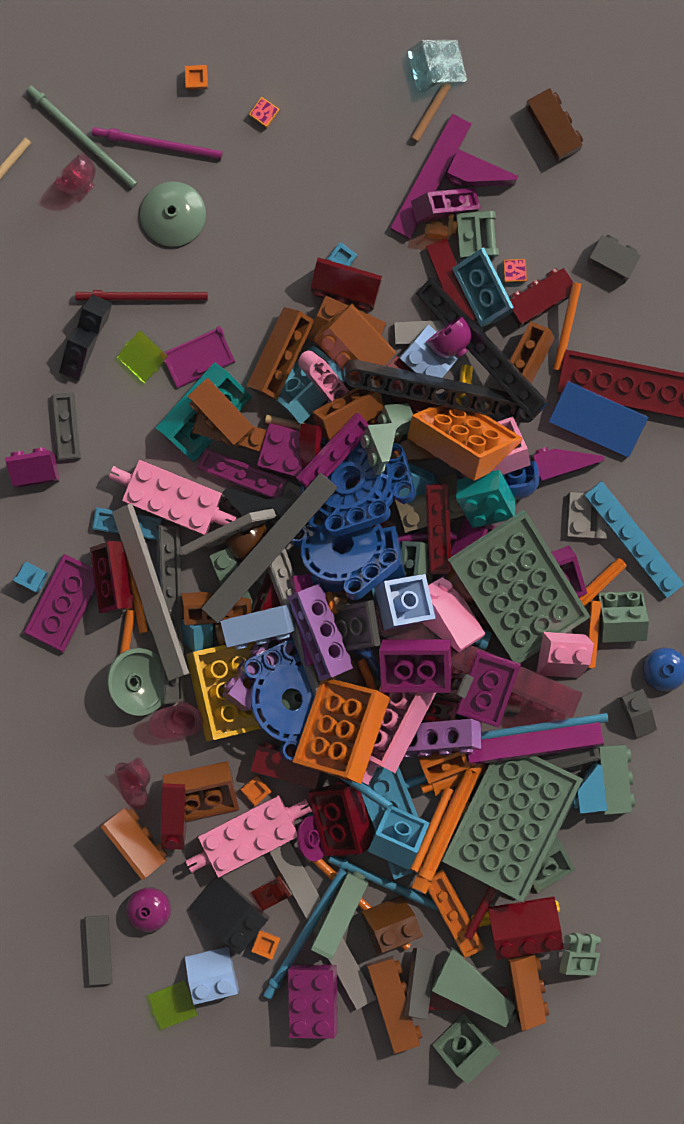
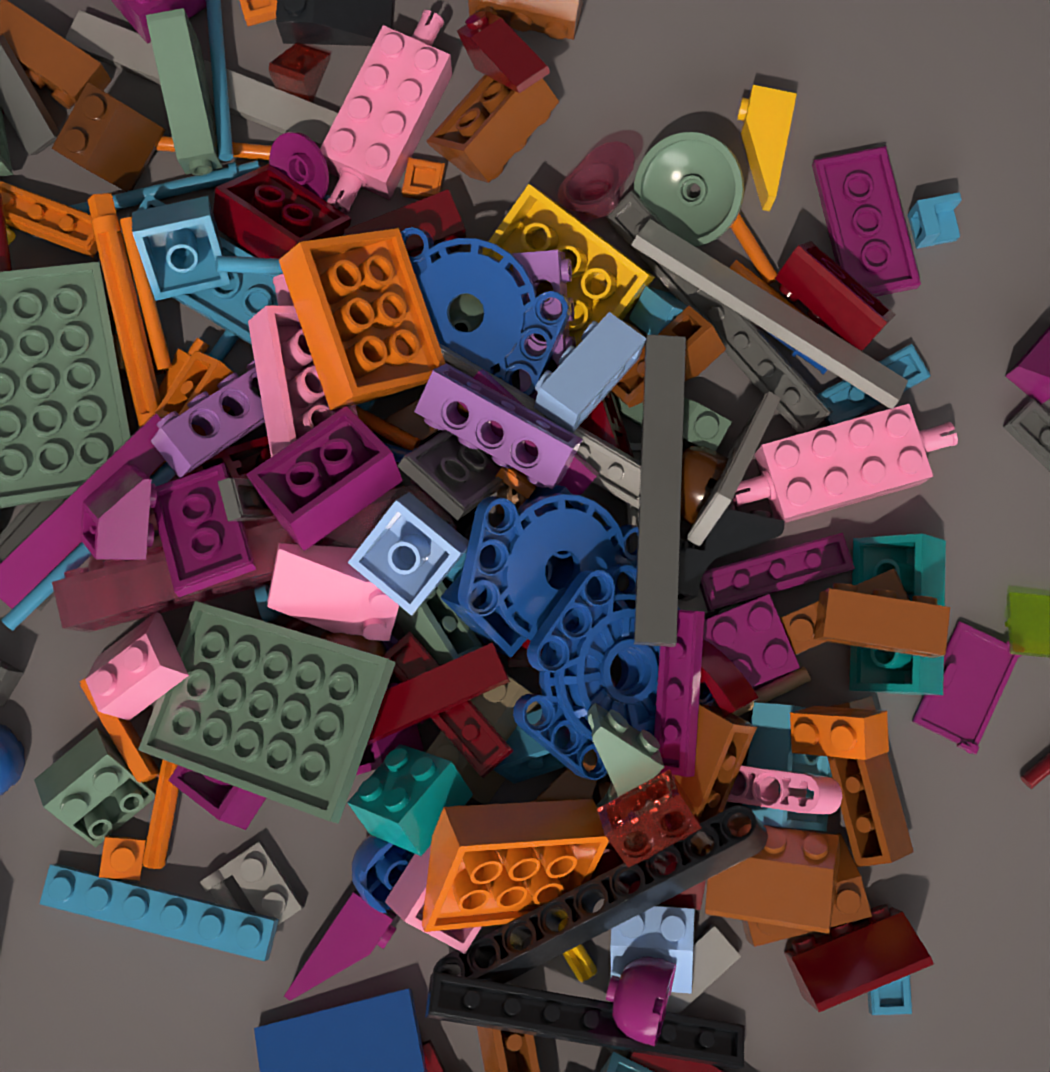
camera: 145 degrees right, 5 degrees down
(77, 681) = (765, 136): none -> yellow slope
(133, 780) = (589, 71): clear pink piece -> none
(278, 381) = (839, 732): none -> orange brick
(390, 409) = (649, 818): none -> clear red brick
(435, 535) = (438, 690): none -> dark red tile
(520, 723) = (118, 516): none -> magenta slope
(633, 576) = (122, 857): none -> orange plate

